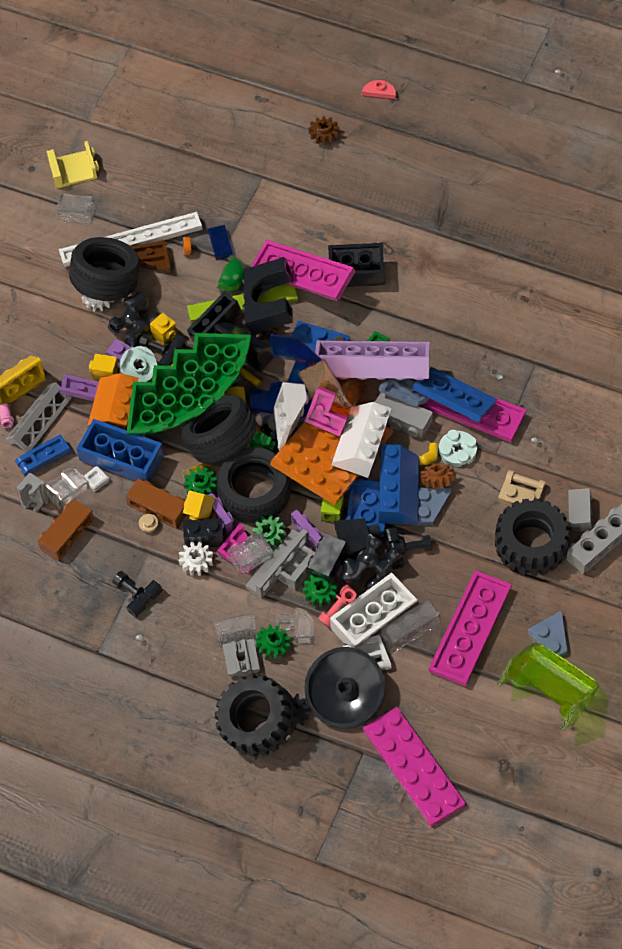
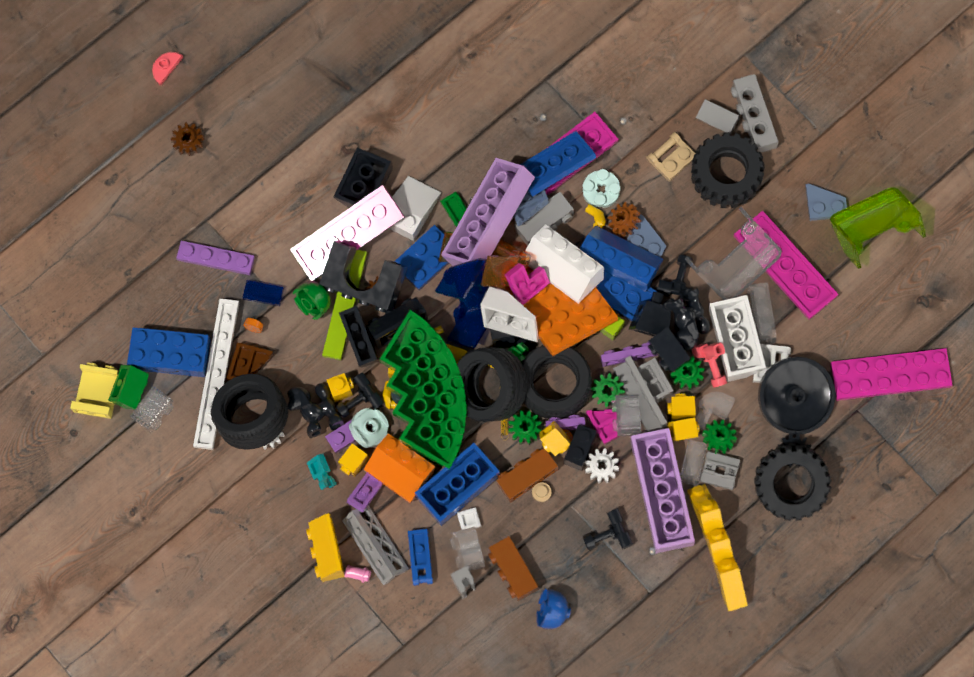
camera: 60 degrees left, 15 degrees up
(41, 575) = (553, 609): none -> blue cylinder
(84, 347) = (319, 468): none -> teal plate
(86, 183) = (128, 387): none -> green brick
(130, 196) = (169, 352): none -> blue brick
(162, 675) = (719, 547): none -> yellow arch
(194, 614) = (662, 490): none -> lavender brick
(232, 196) = (215, 258): none -> medium lavender plate
(263, 607) = (683, 429): none -> yellow brick
(284, 598) = (681, 407): none -> yellow brick
(356, 312) = (416, 204): none -> white slope
(446, 589) = (743, 264): none -> clear windscreen

